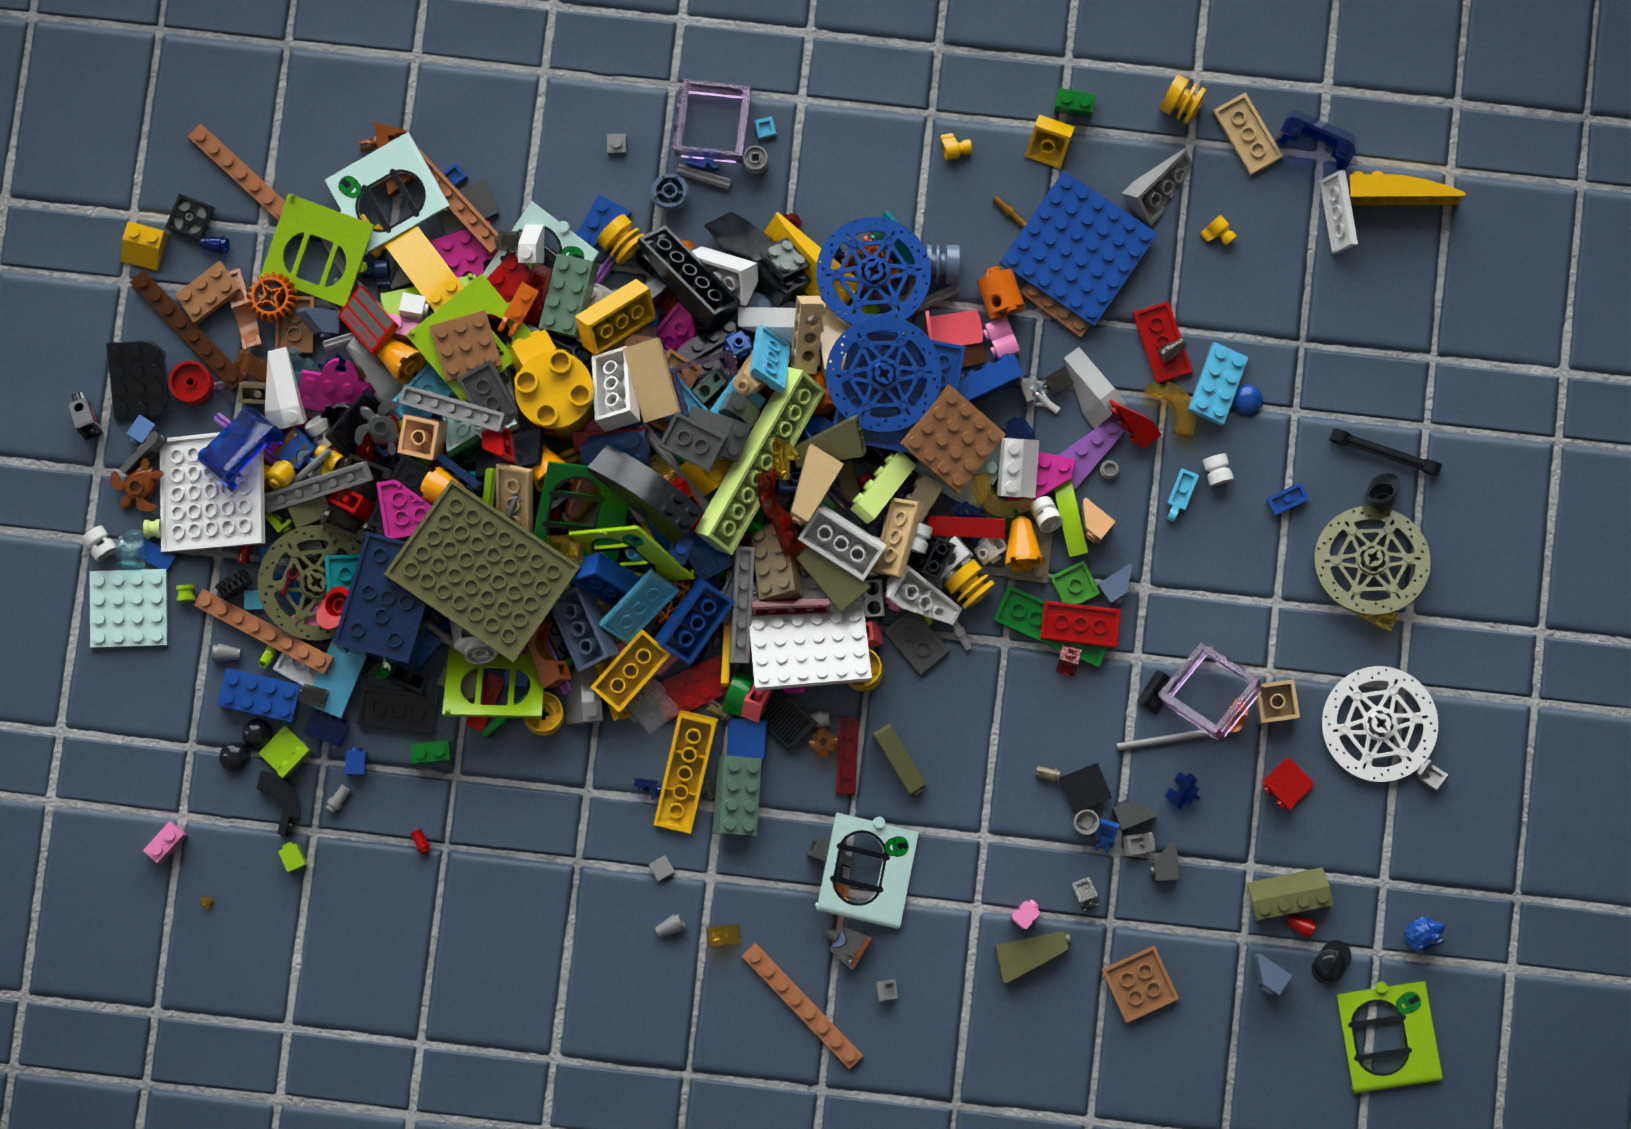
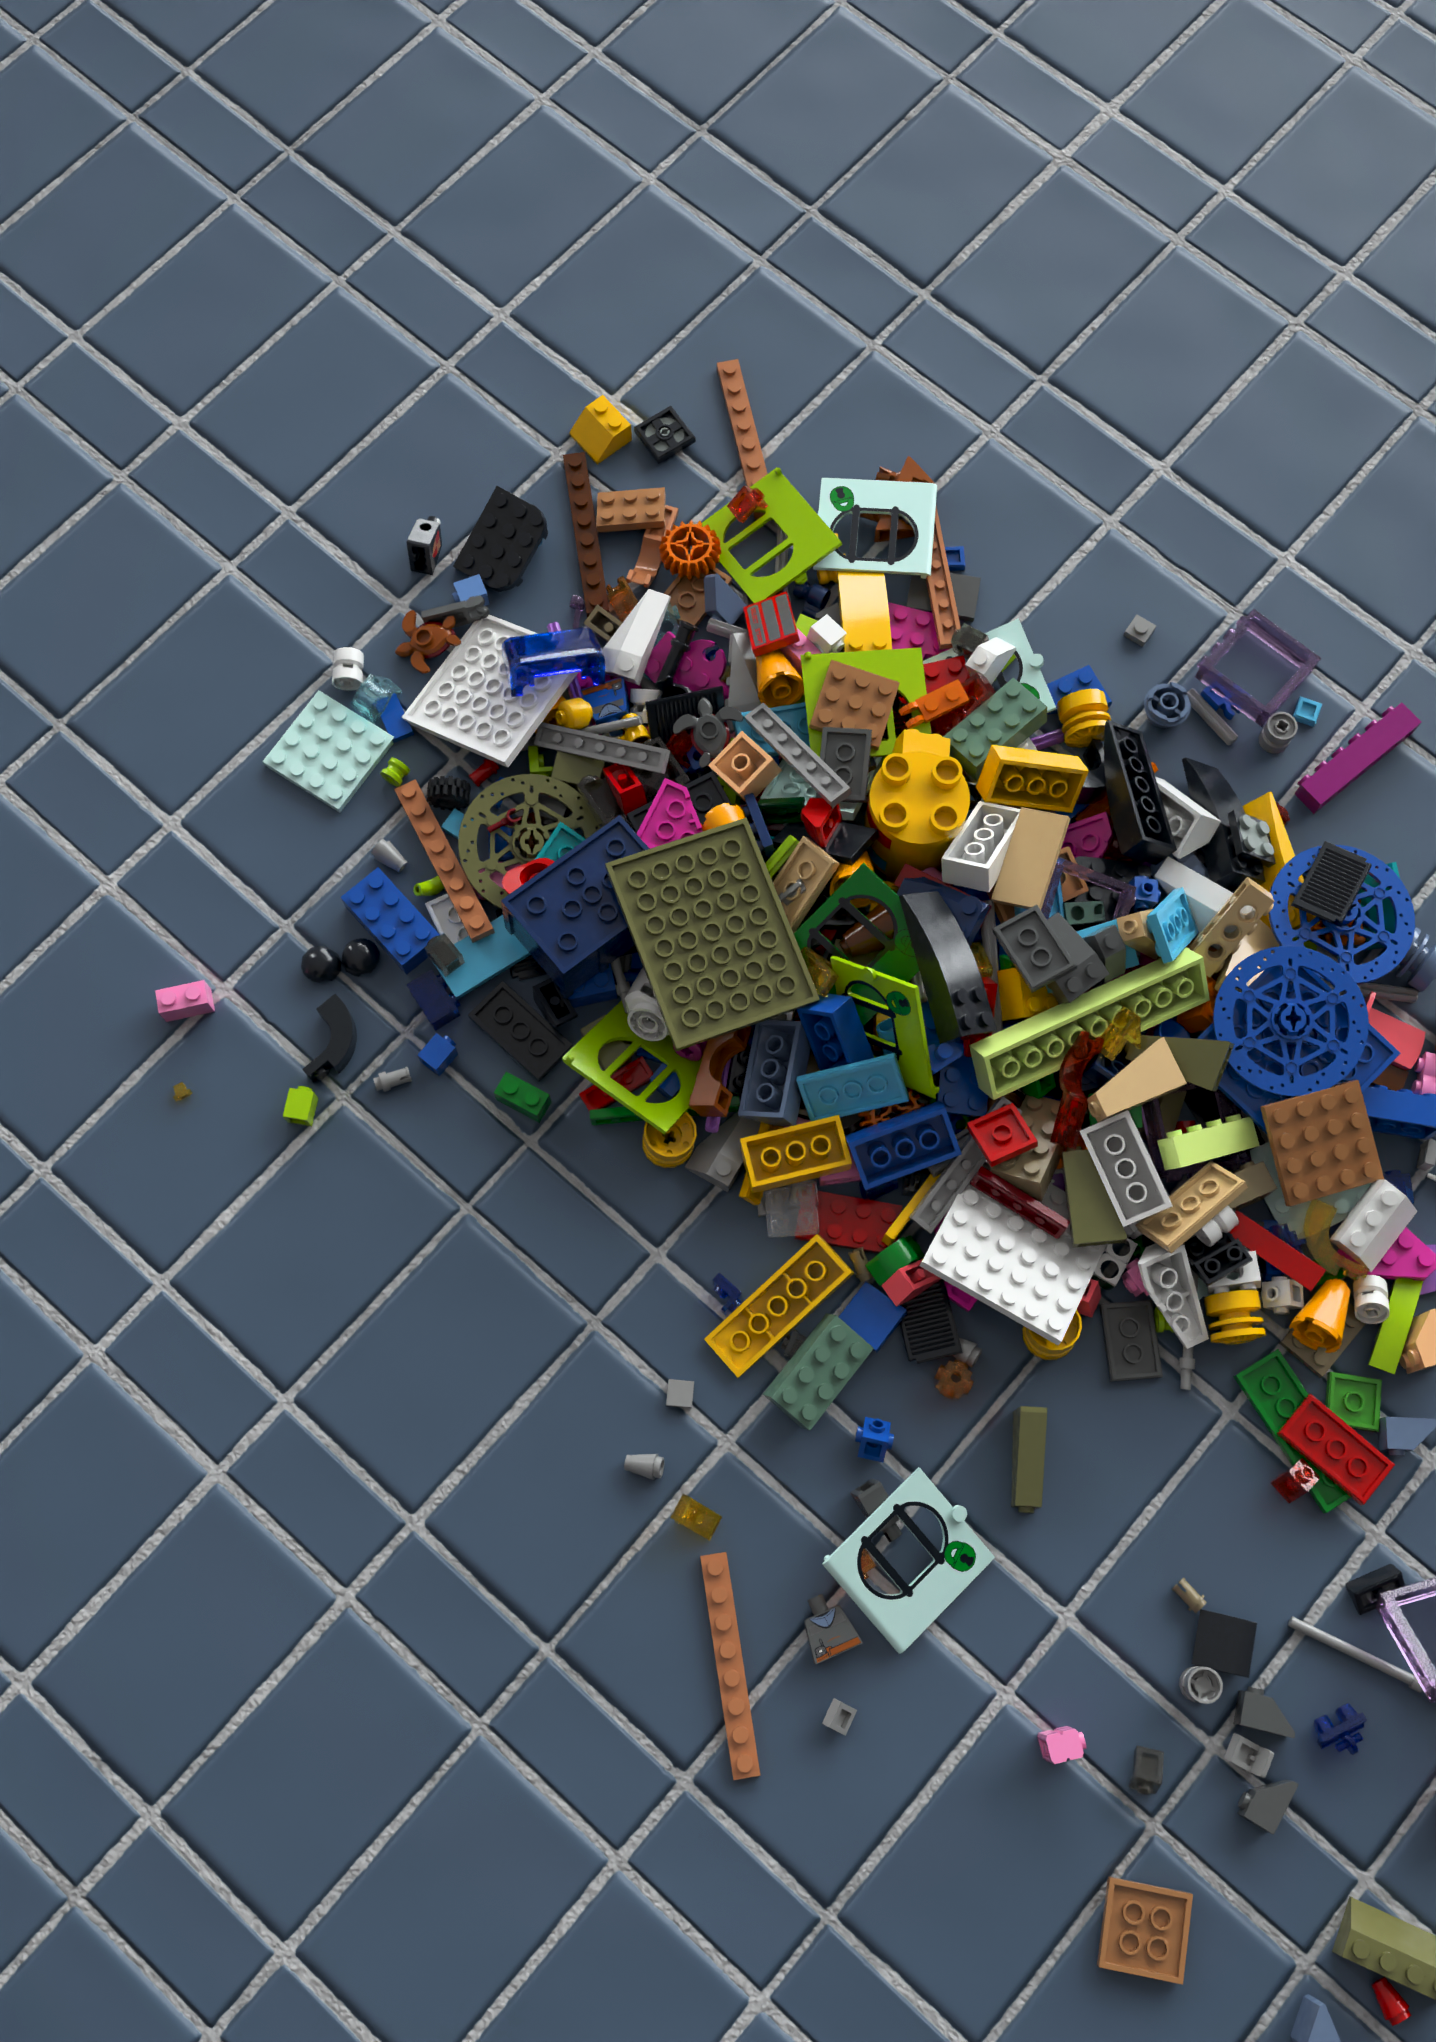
camera: 30 degrees right, 10 degrees down
(152, 528) = (409, 689): yellowish green wheel -> none
(181, 378) = (551, 579): red wheel -> none
(215, 244) = (671, 473): clear blue cone -> none
(285, 752) = (374, 995): lime bracket -> none
(286, 236) = (746, 503): none -> clear red bracket
(318, 379) = (680, 645): none -> black pin
(383, 670) = (534, 979): green piece -> none
(420, 841) = (444, 1182): red pin -> none
(751, 573) = (1002, 1134): none -> red plate
(799, 813) = (874, 1439): none -> blue brick
(819, 141) = (1356, 758): none -> magenta brick
(847, 755) = (969, 1414): dark red tile -> none
(854, 258) = (1332, 883): none -> black window
(1026, 954) = (1028, 1793): olive slope -> none
(1106, 834) = (1218, 1715): blue plate -> none

